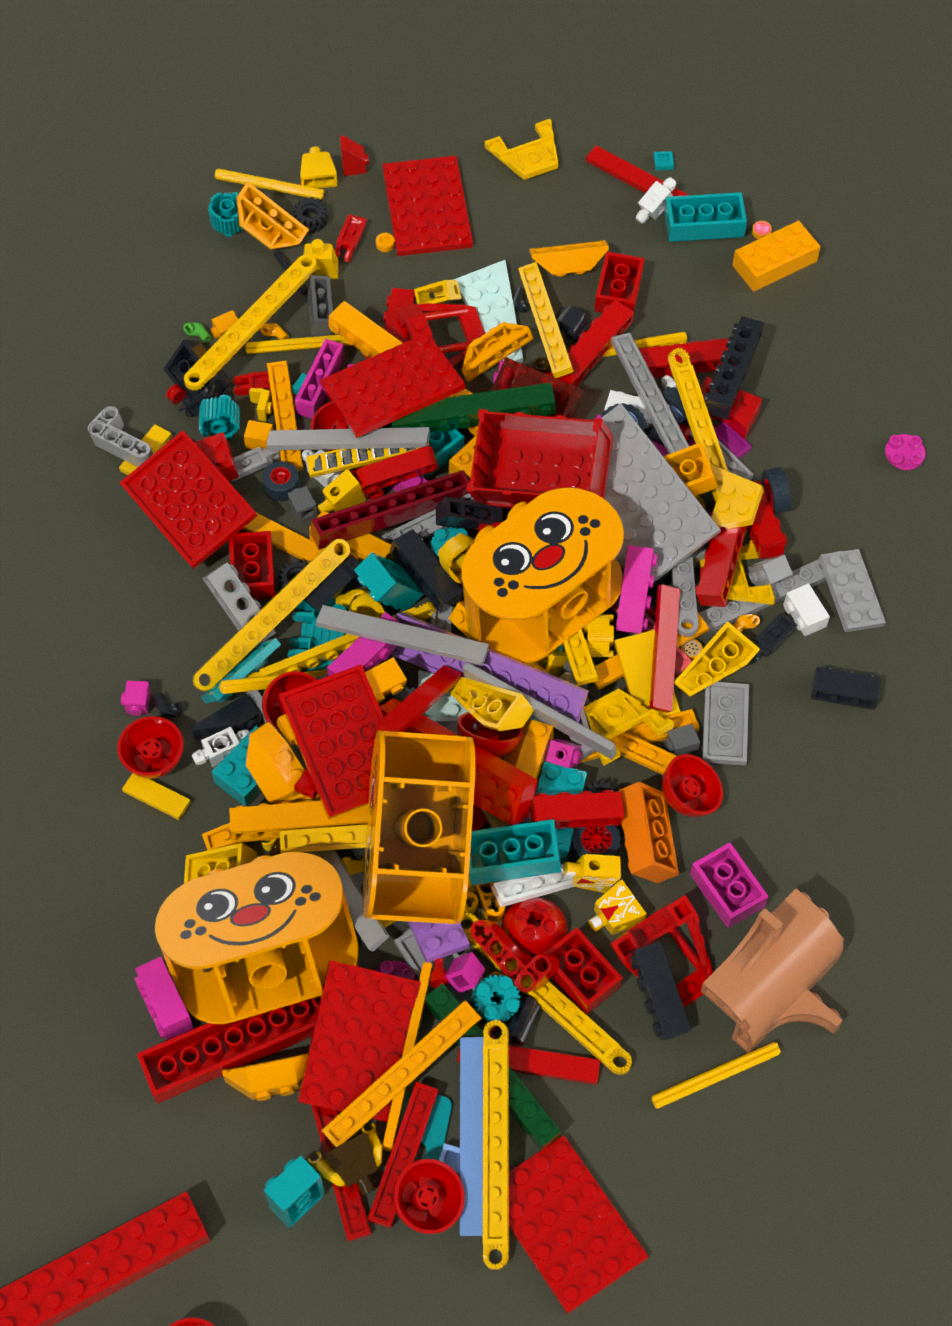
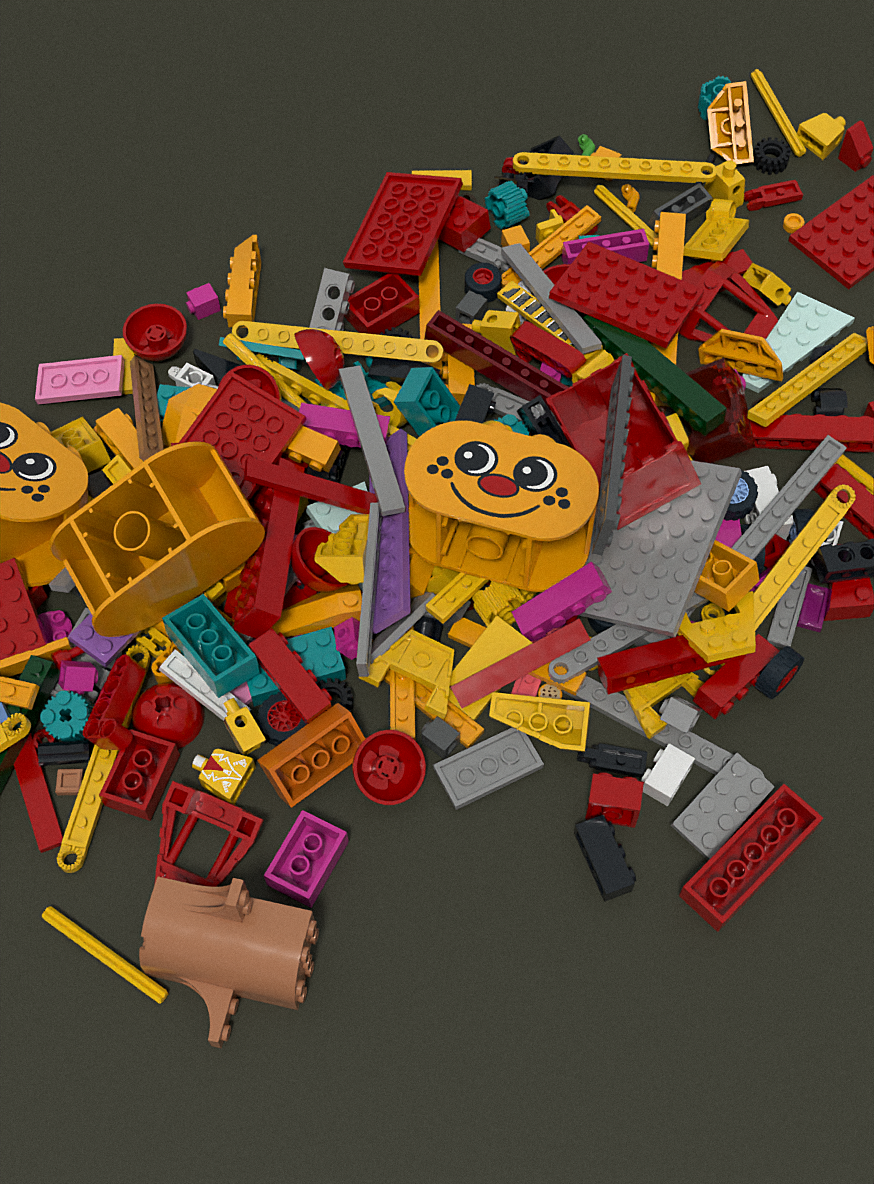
camera: 60 degrees right, 0 degrees up
(108, 435) = (437, 141): light grey beam -> none
(144, 656) = (243, 282): none -> light orange wedge
(149, 836) = (80, 379): none -> bright pink plate
(165, 708) = (208, 326): black arm -> none
(248, 791) = (146, 408): none -> medium nougat plate
(290, 628) = (322, 355): none -> red piece
(356, 288) = (717, 233): none -> yellow hinge
(442, 450) = (598, 361): none -> yellow axle
(547, 1032) = (69, 781): none -> nougat tile
(574, 466) = (613, 454): none -> dark grey plate
(659, 990) = (152, 852): black brick -> none
(746, 622) = (613, 725): light orange arm -> none
(809, 652) = (615, 798): none -> red brick
(903, 595) = (750, 857): none -> red brick

